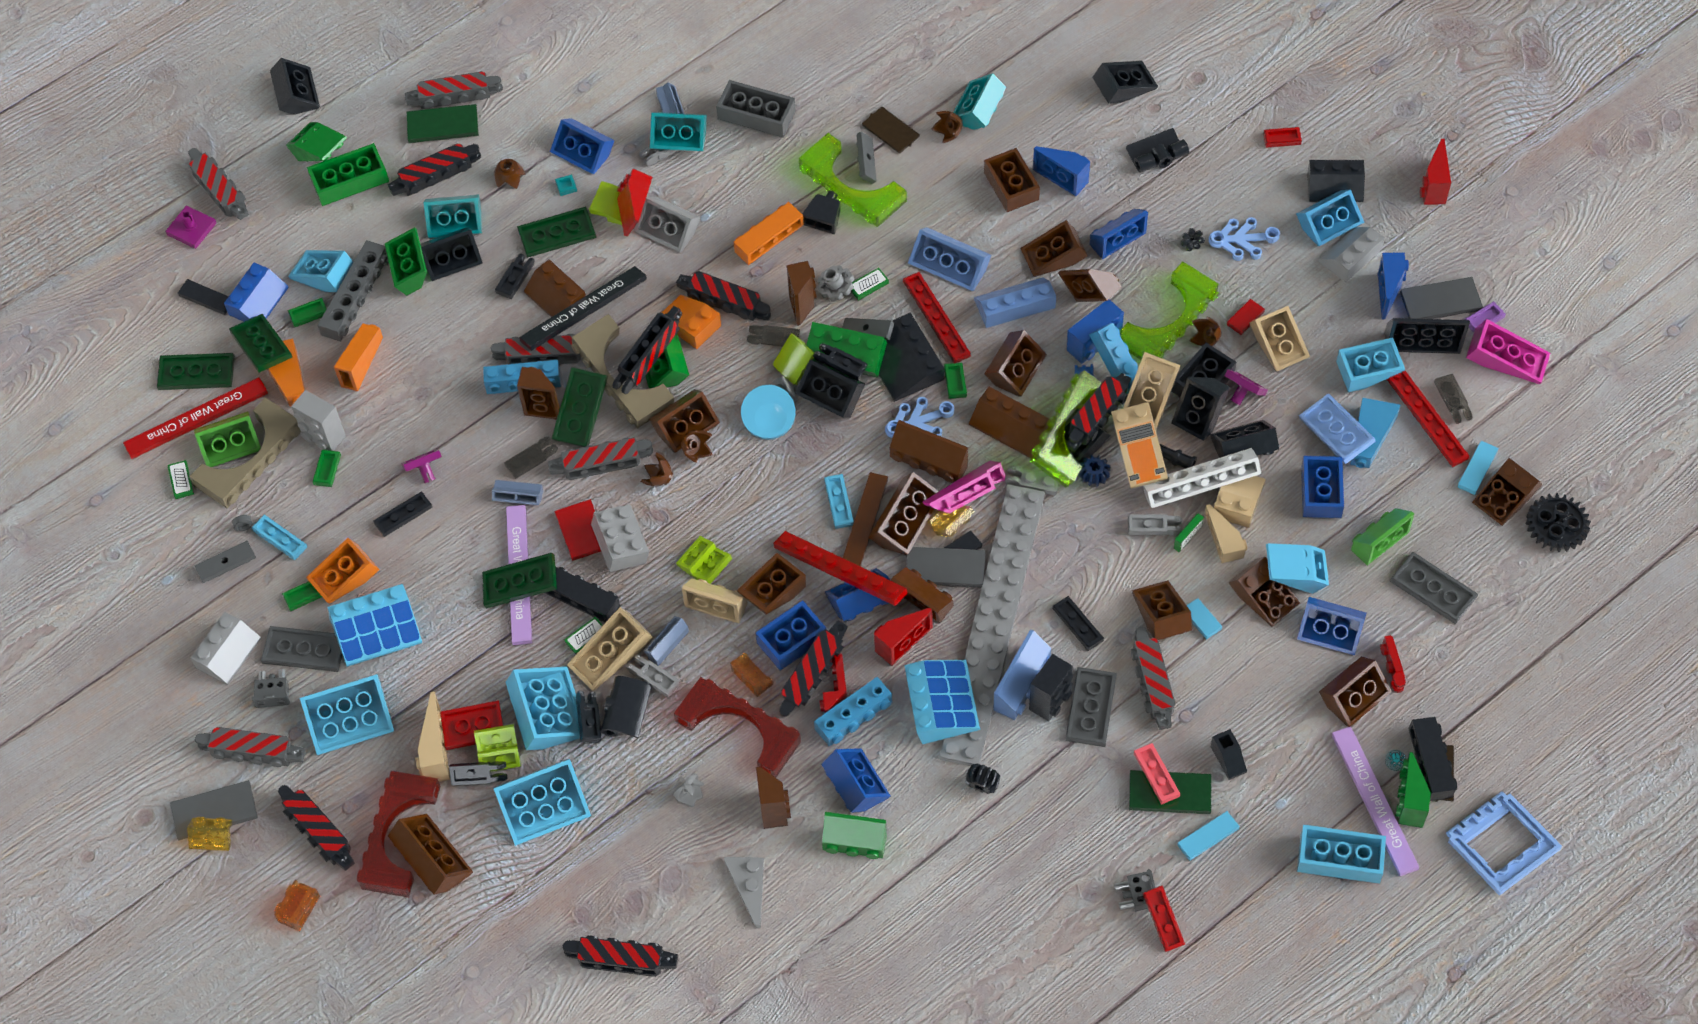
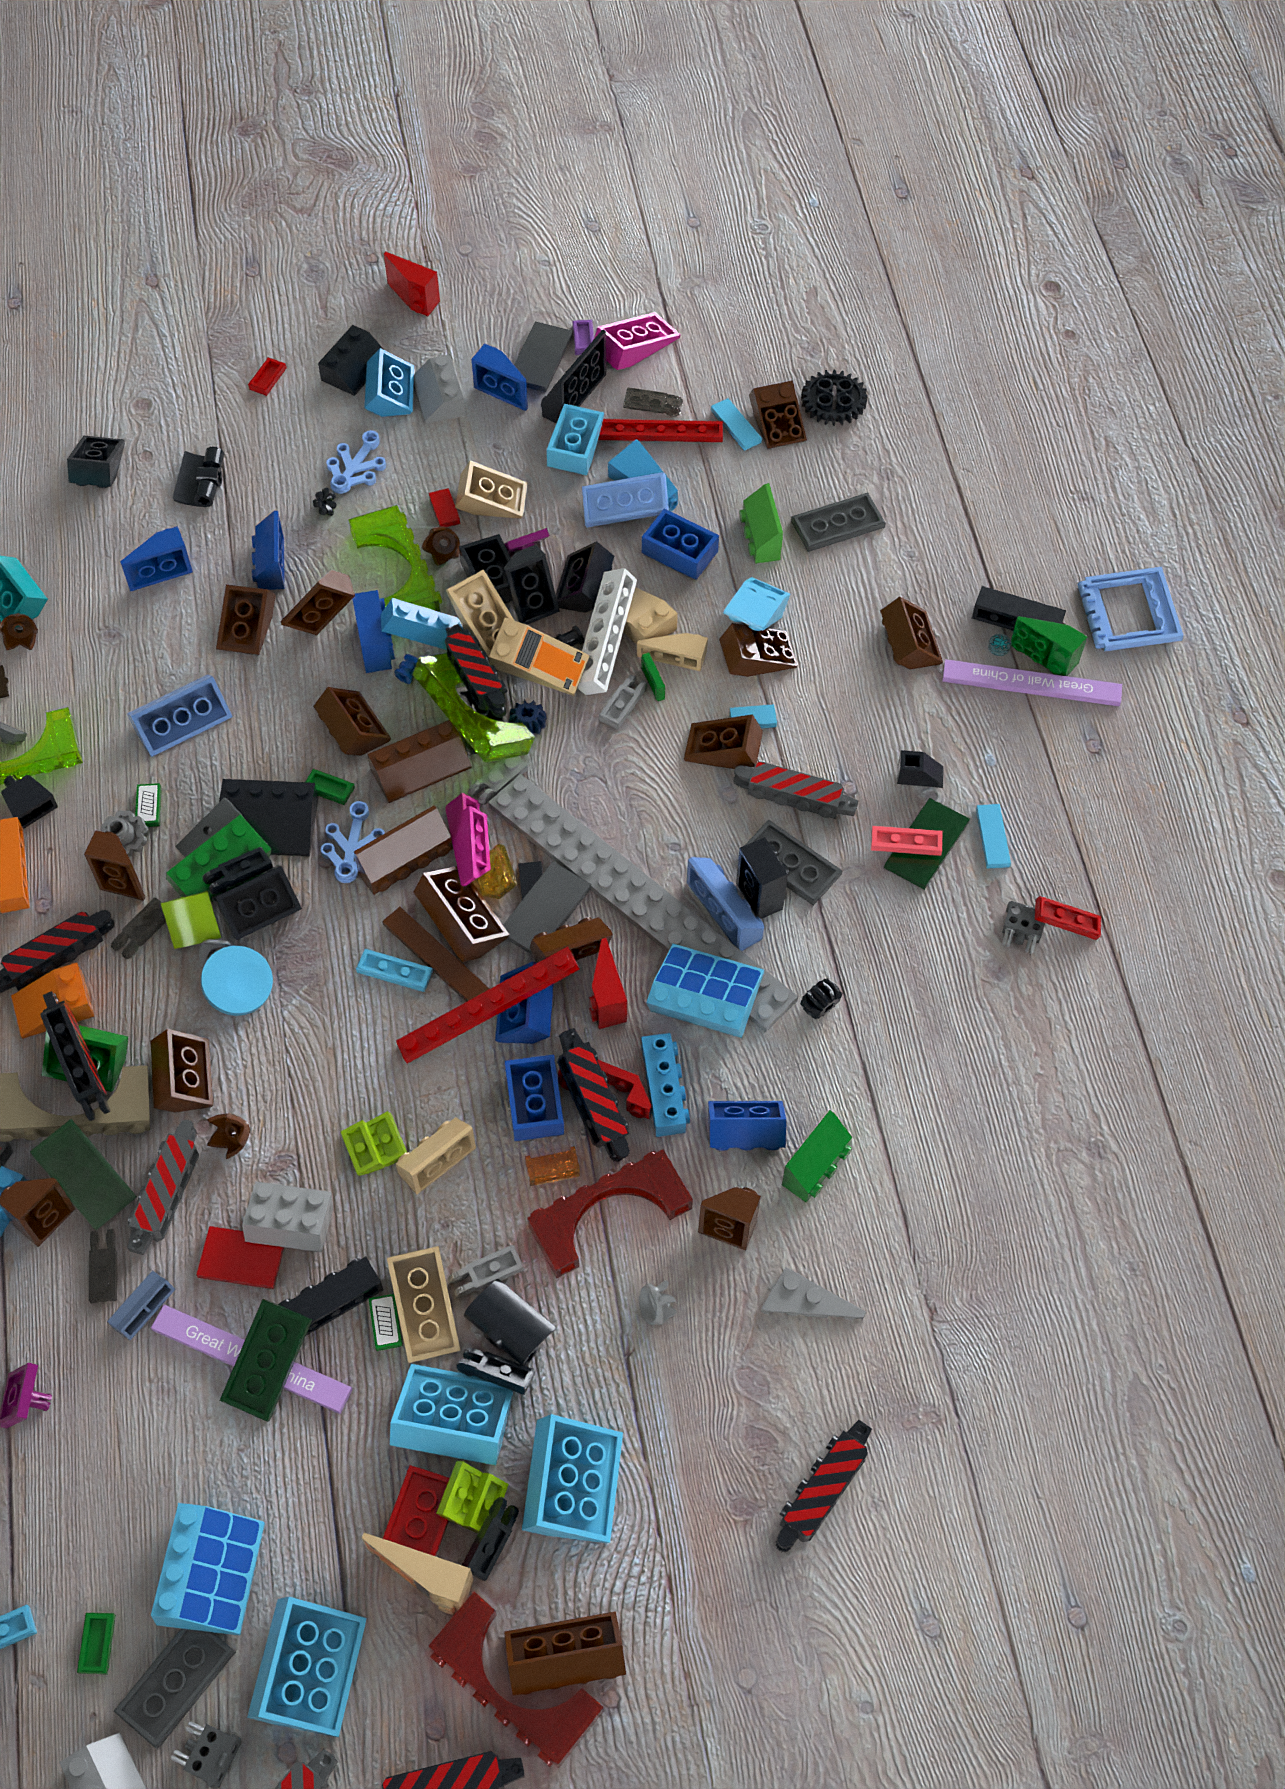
camera: 65 degrees left, 0 degrees up
(342, 571) = (103, 1575): orange slope -> none
(402, 514) = (70, 1459): black tile -> none
(666, 640) = (455, 1232): sand blue piece -> none
(699, 447) = (223, 1078): reddish brown piece -> none
(773, 584) = (461, 1082): reddish brown slope -> none
(936, 317) = (238, 764): red tile -> none
(1011, 180) = (133, 610): reddish brown brick -> none
(1016, 302) = (277, 683): medium blue slope -> none
(1078, 623) = (689, 824): black tile -> none
(1331, 626) = (831, 616): blue slope -> none
(1341, 854) = (1079, 734): medium azure brick -> none
(1393, 663) = (893, 588): red hinge -> none

